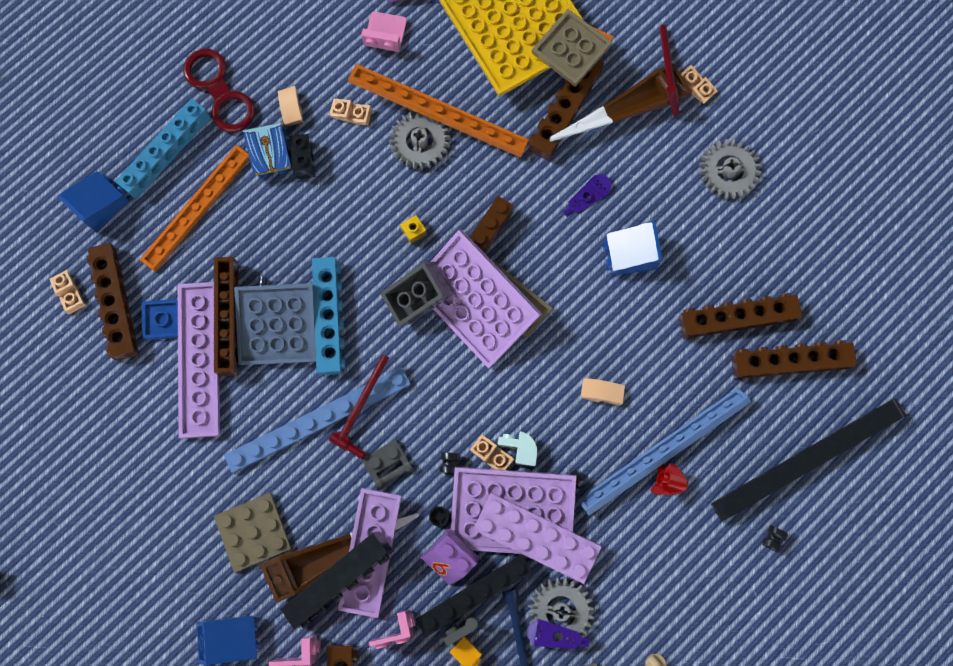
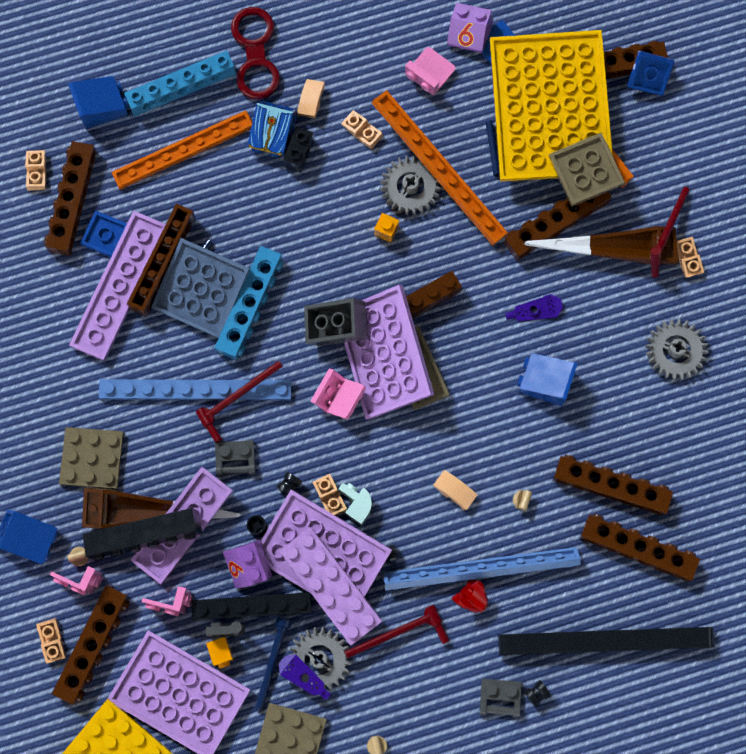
camera: 25 degrees right, 0 degrees up
(286, 632) = (77, 556): none -> tan plate
(416, 234) = (363, 269): yellow plate -> none
(418, 187) = (386, 227): none -> light orange brick
(453, 358) = (338, 395): none -> bright pink bracket
(476, 73) = (492, 147): none -> dark blue bar
(640, 518) = (430, 616): none -> dark red bar
(667, 370) = (521, 499): none -> tan plate
(740, 553) = (502, 691): none -> dark grey plate

